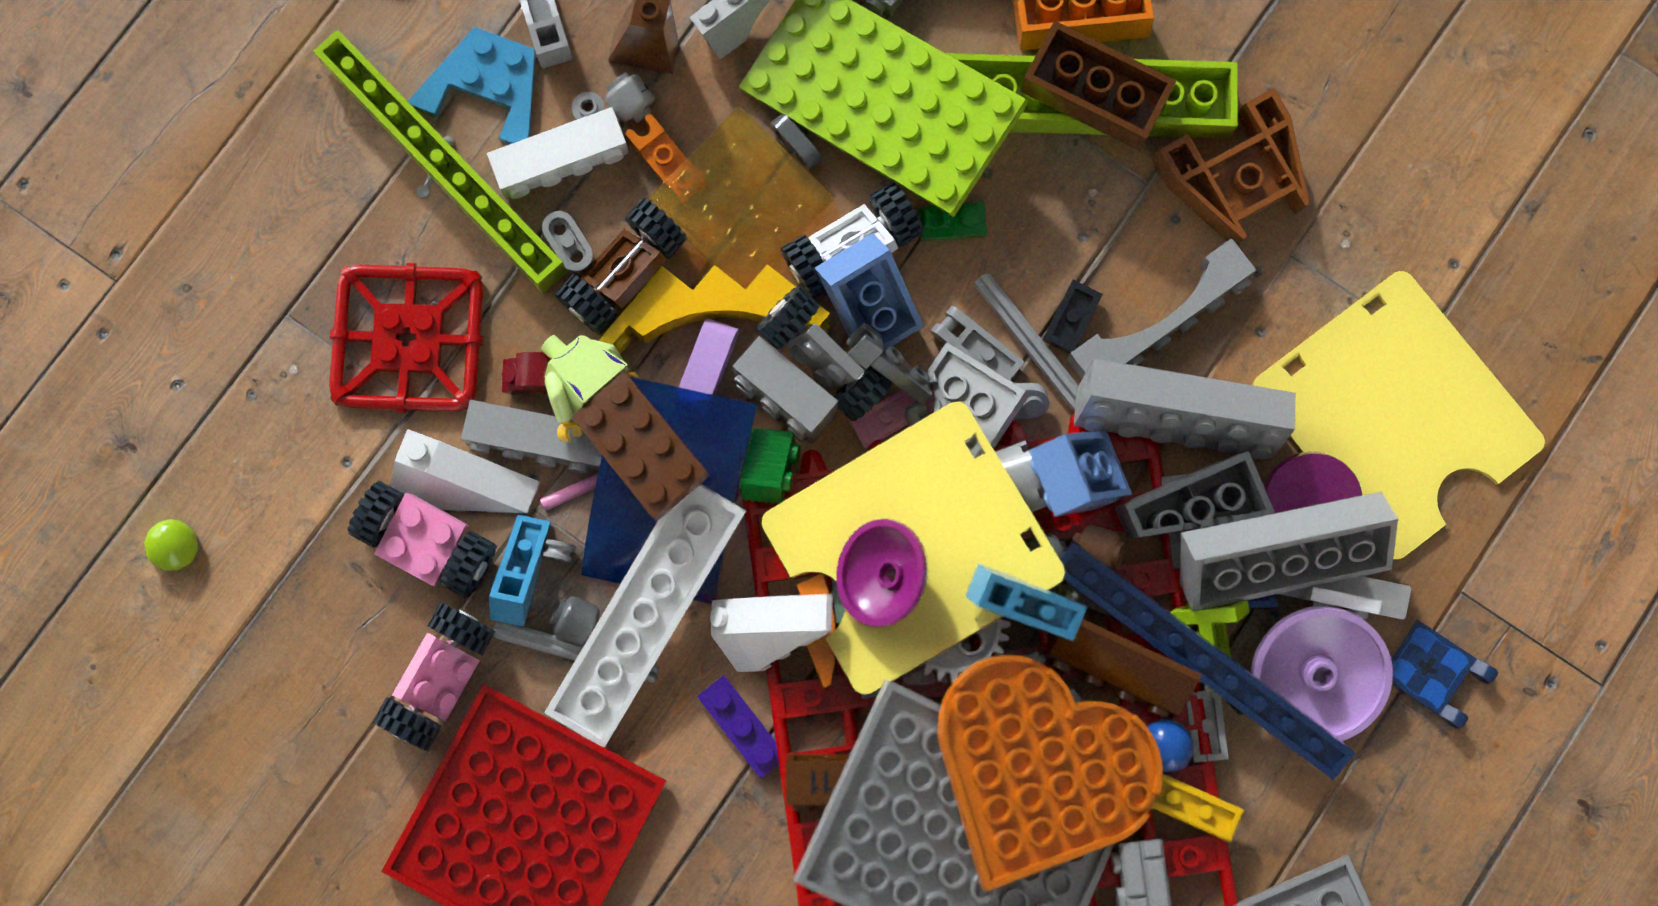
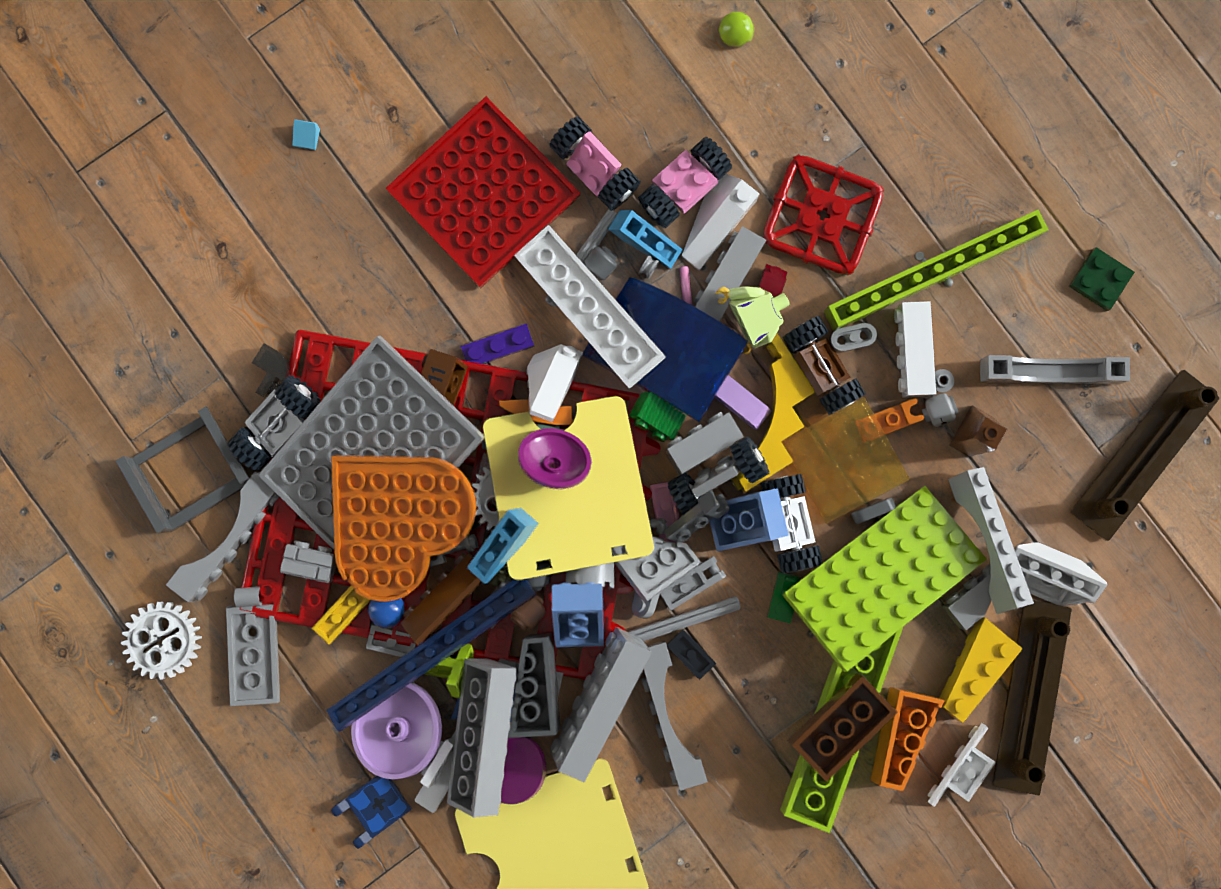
camera: 105 degrees right, 5 degrees up
(489, 70) = (989, 325): dark azure wing -> none
(640, 446) = (694, 333): reddish brown plate -> none
(1243, 177) = (747, 807): dark orange wedge -> none

